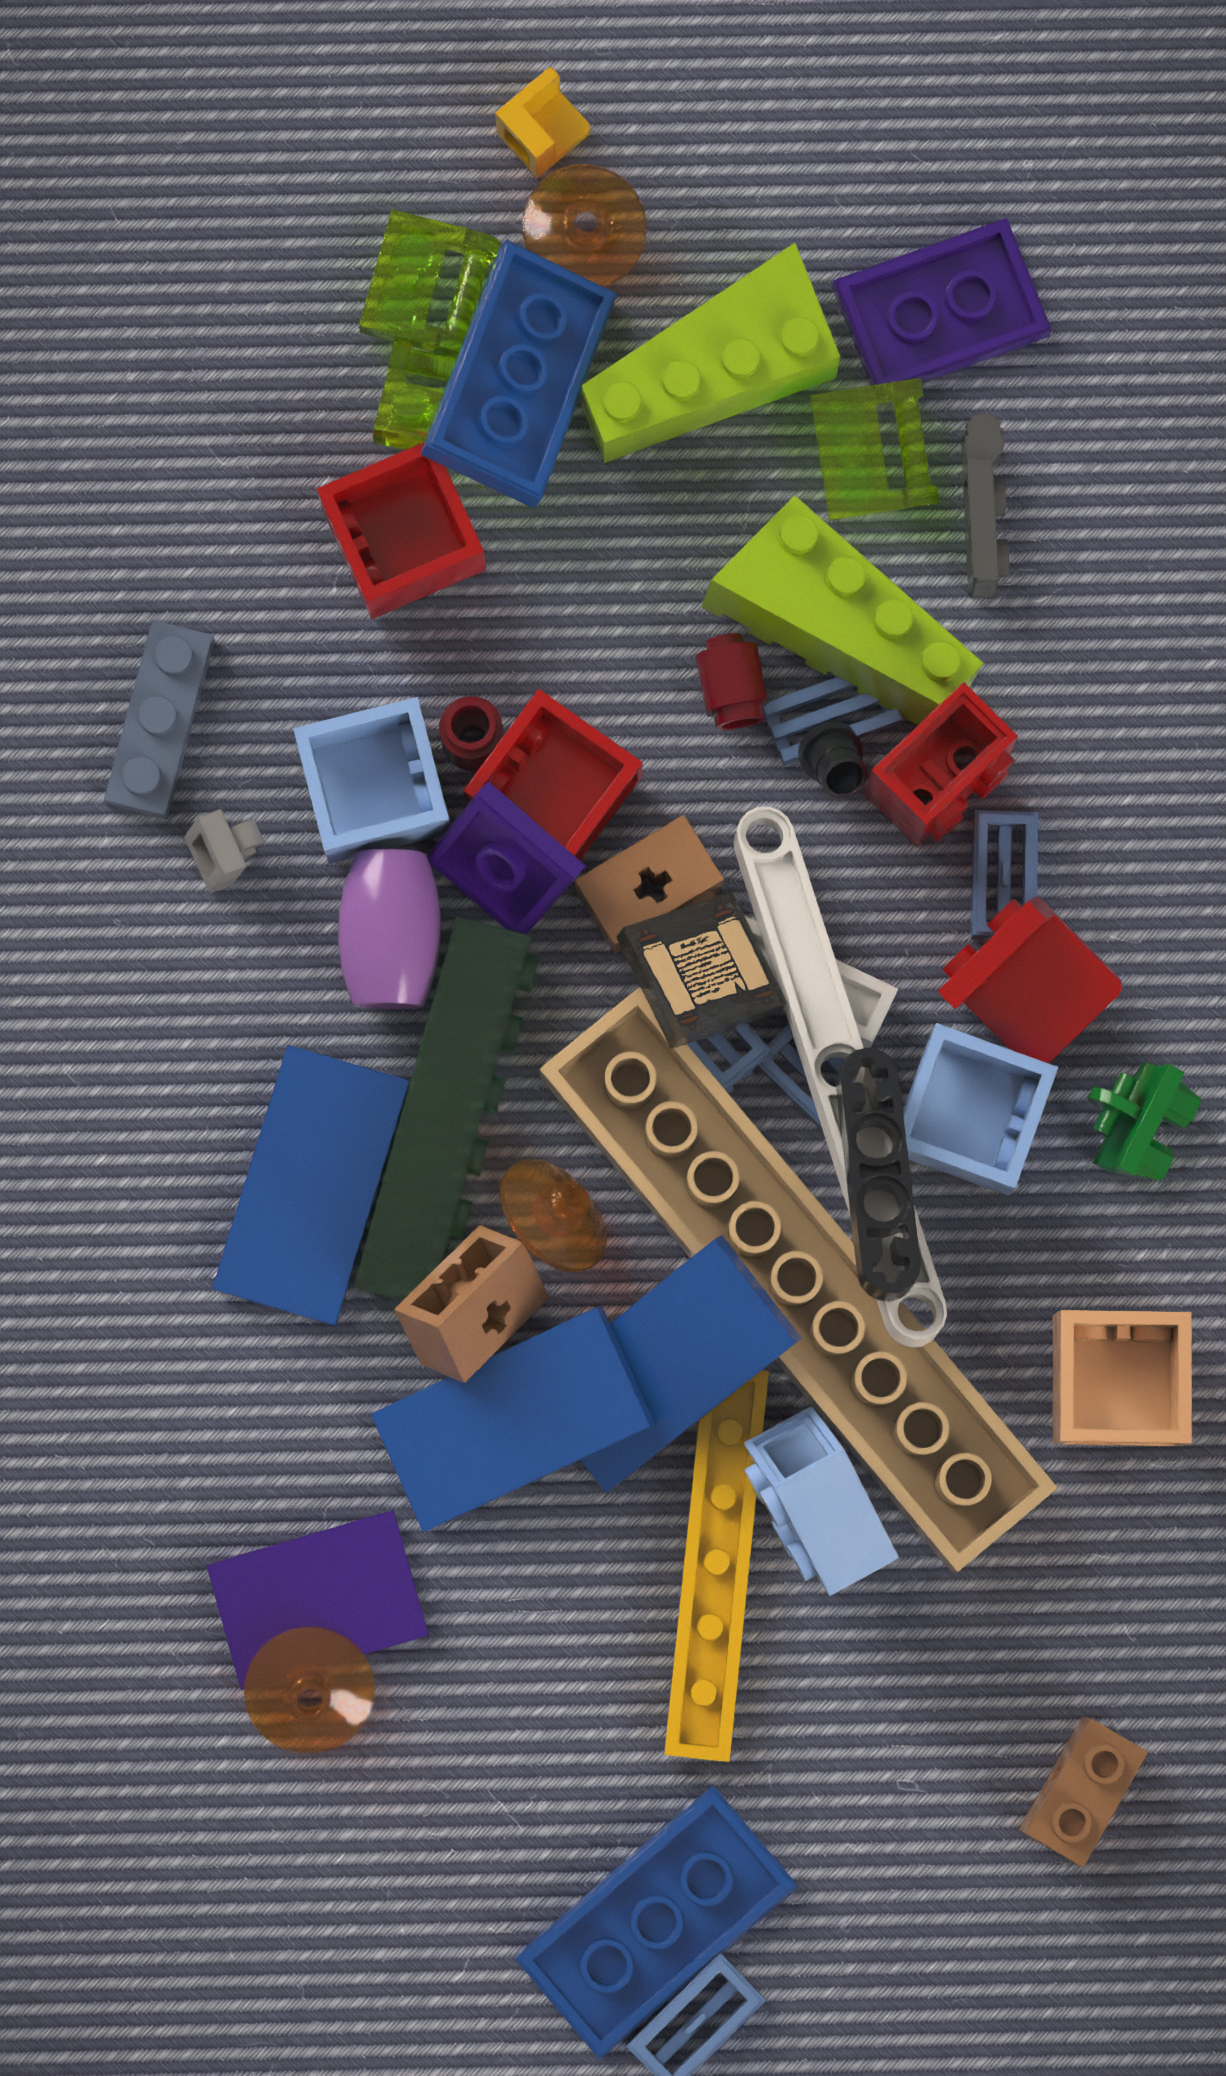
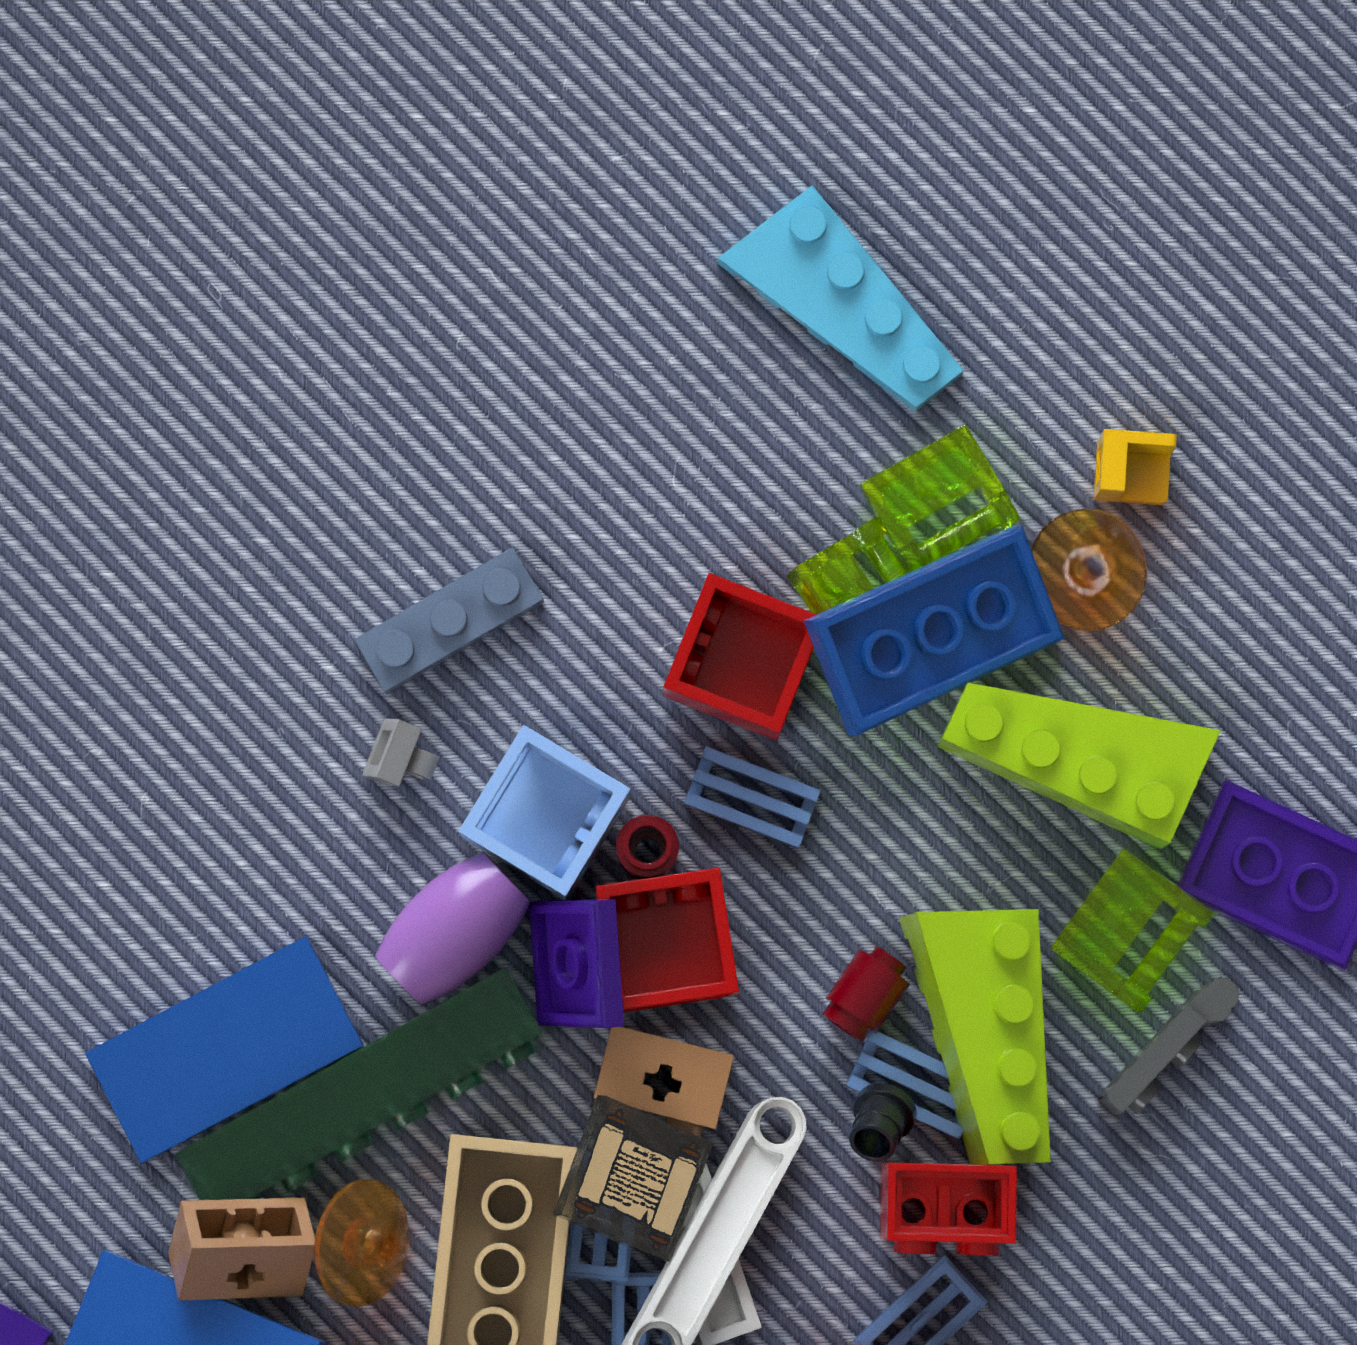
camera: 45 degrees right, 0 degrees up
(193, 207) = (835, 289): none -> medium azure wing
(506, 602) = (761, 775): none -> medium blue tile

